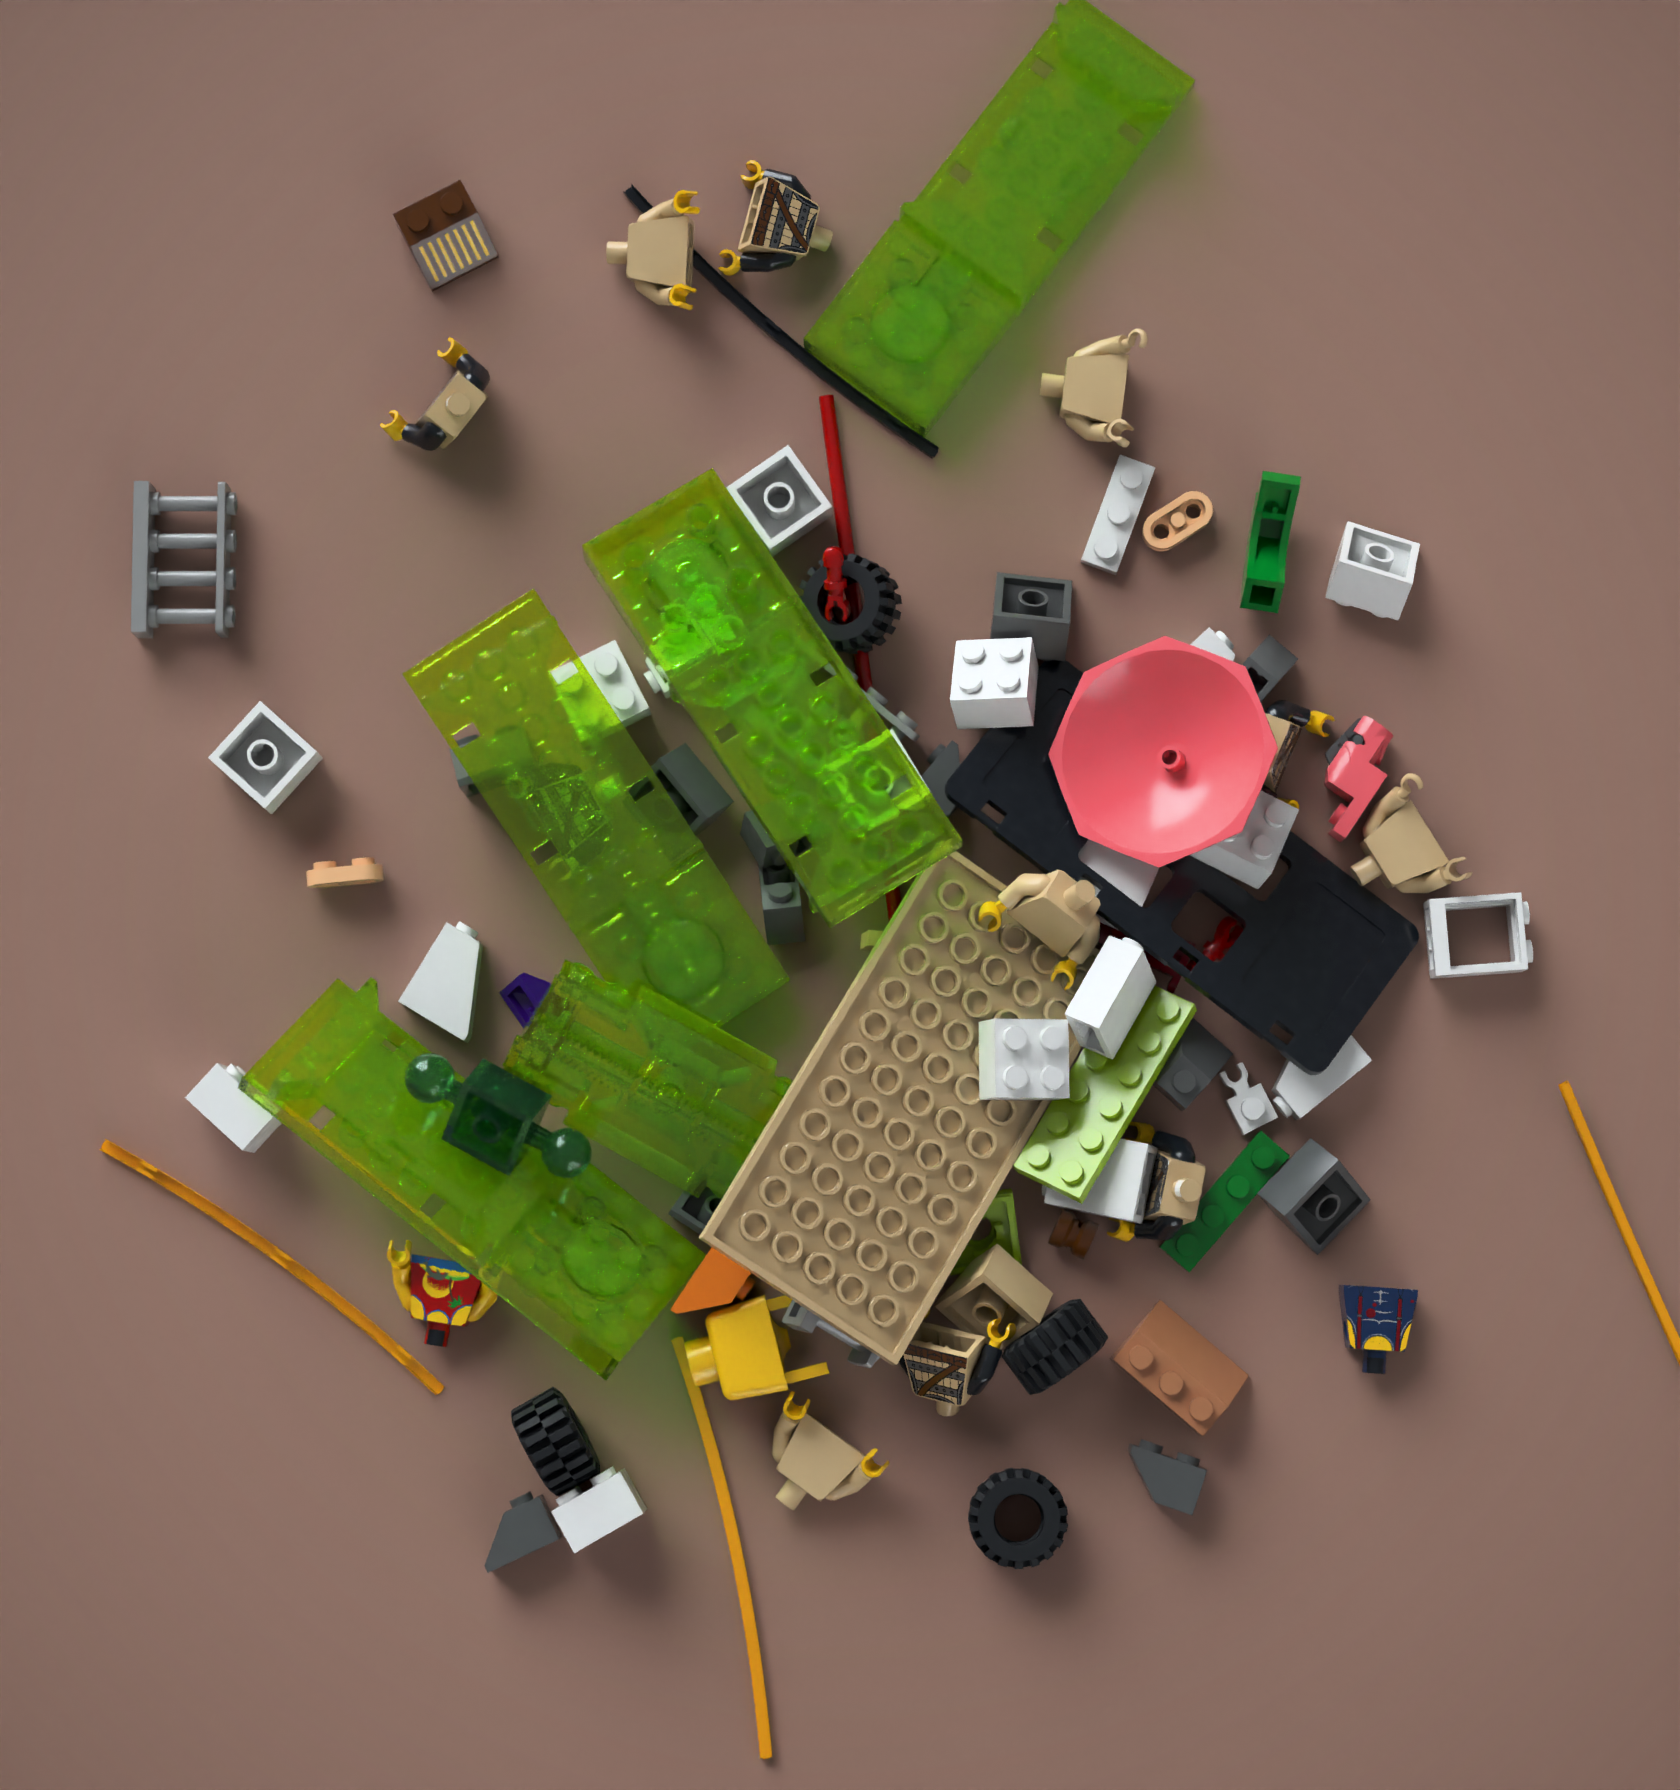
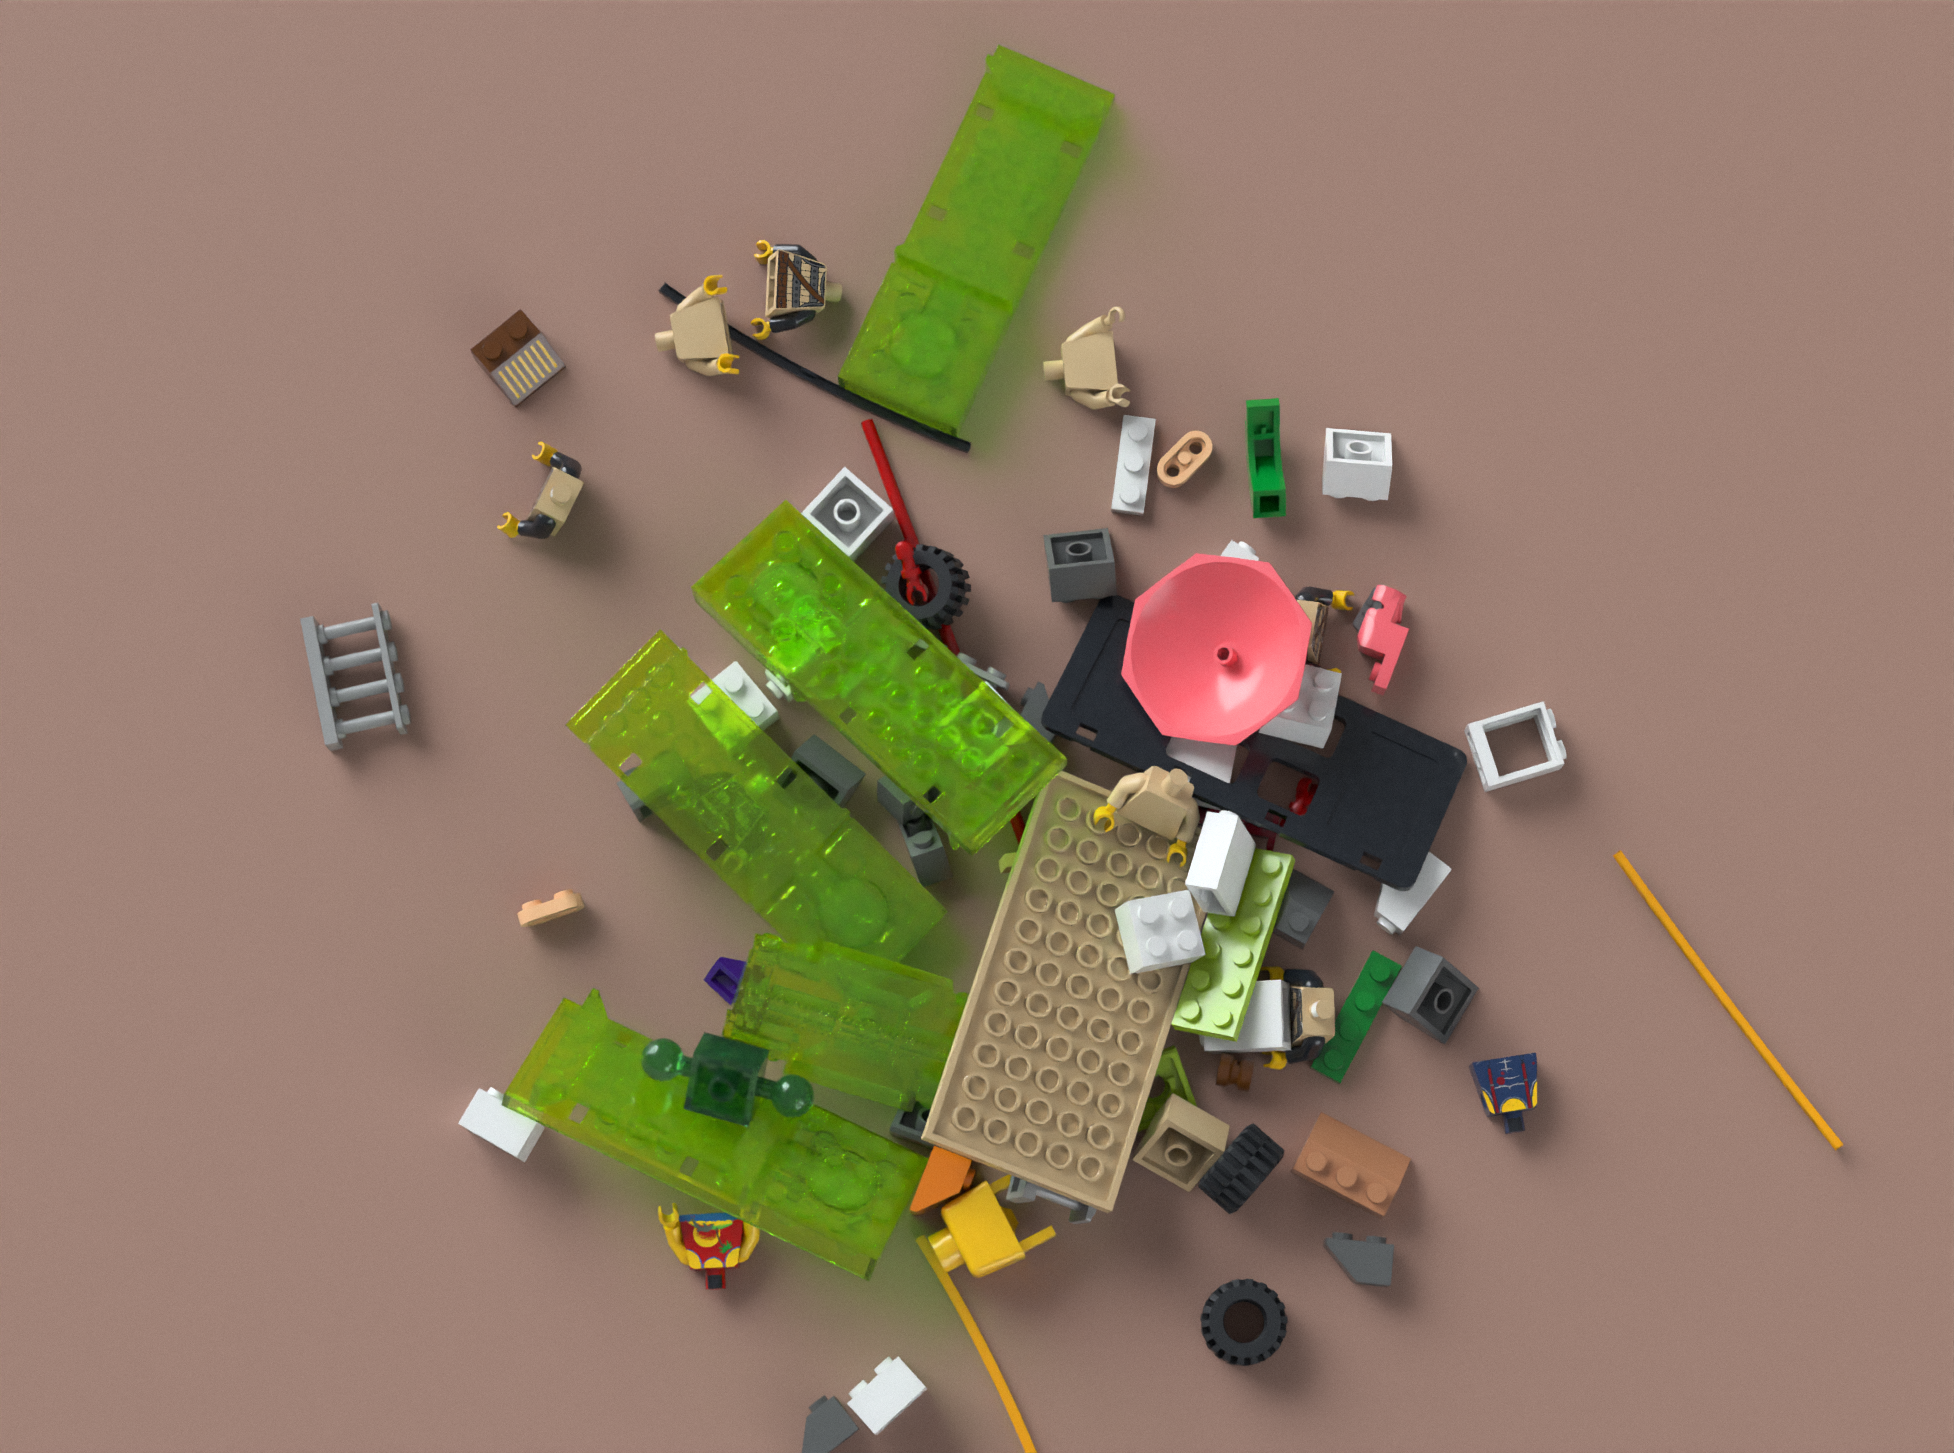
camera: 10 degrees left, 5 degrees down
(265, 757) = (462, 825): white brick -> none
(281, 1258) = (566, 1245): light orange piece -> none
(448, 981) = (657, 979): white slope -> none
(555, 1441) = (837, 1345): black tyre -> none
(817, 1458) = (1062, 1311): tan torso -> none
(952, 1363) = (1157, 1203): torso -> none
(994, 683) = (1062, 626): white brick -> none
(1249, 1105) = (1358, 931): white plate -> none
(1268, 665) = (1289, 560): dark grey slope -> none
(1402, 847) = (1436, 687): tan torso -> none

